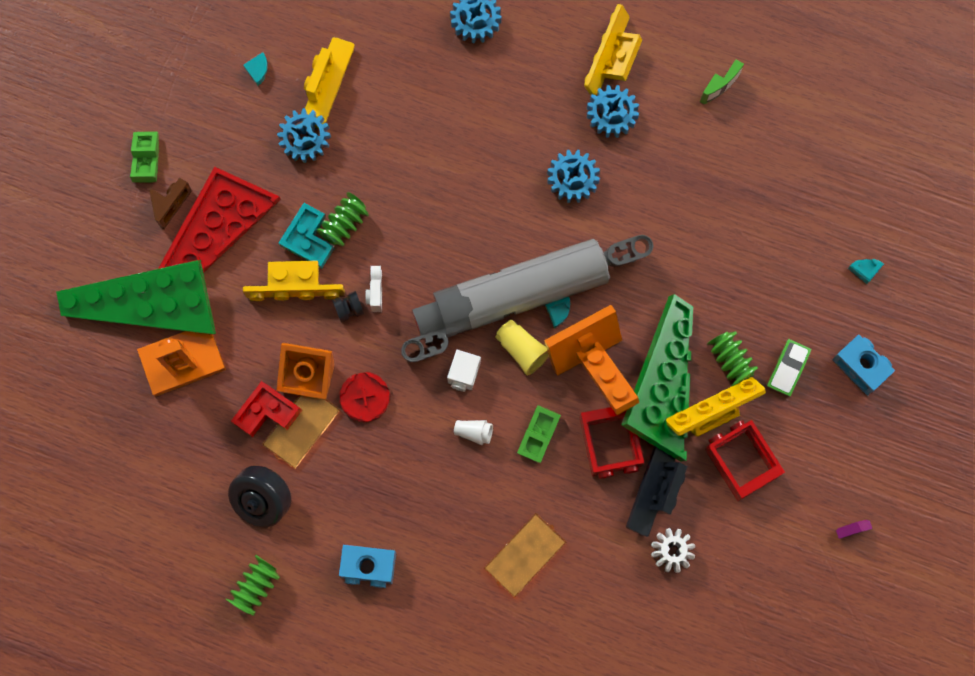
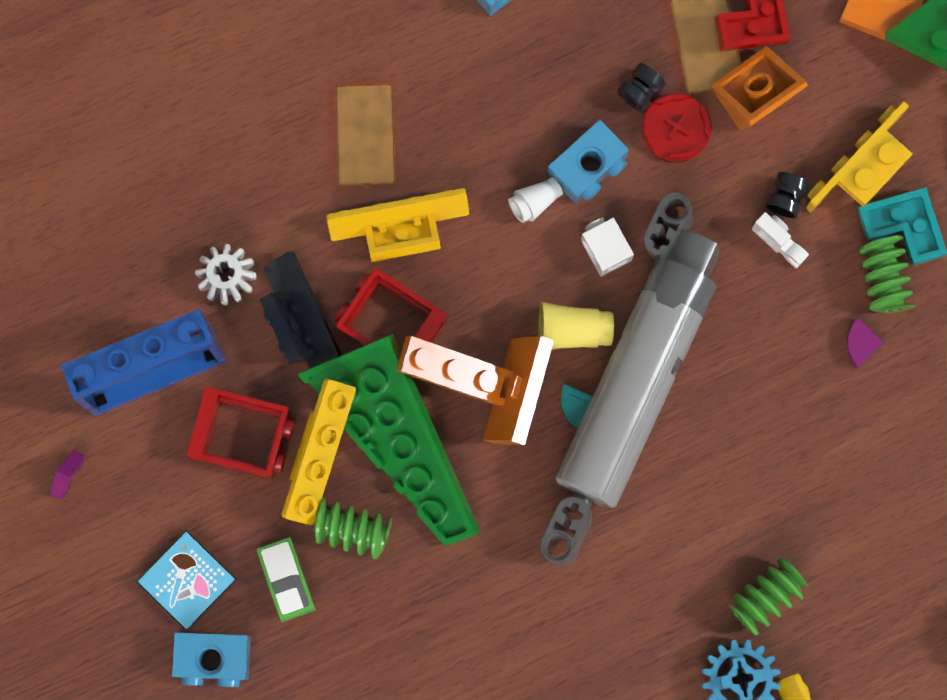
camera: 135 degrees right, 5 degrees up
(367, 432) = (641, 87): none -> black wheel
(389, 205) = (861, 342): none -> magenta tile
(440, 430) = (596, 143): none -> dark azure brick
(539, 433) = (469, 261): bright green slope -> none
(558, 483) = (401, 225): none -> yellow bracket
(561, 133) = (768, 595): none -> bright green piece
(579, 182) = (710, 580): dark azure gear -> none
(768, 534) = (144, 363): none -> blue window
(840, 416) = (186, 580): none -> medium azure tile

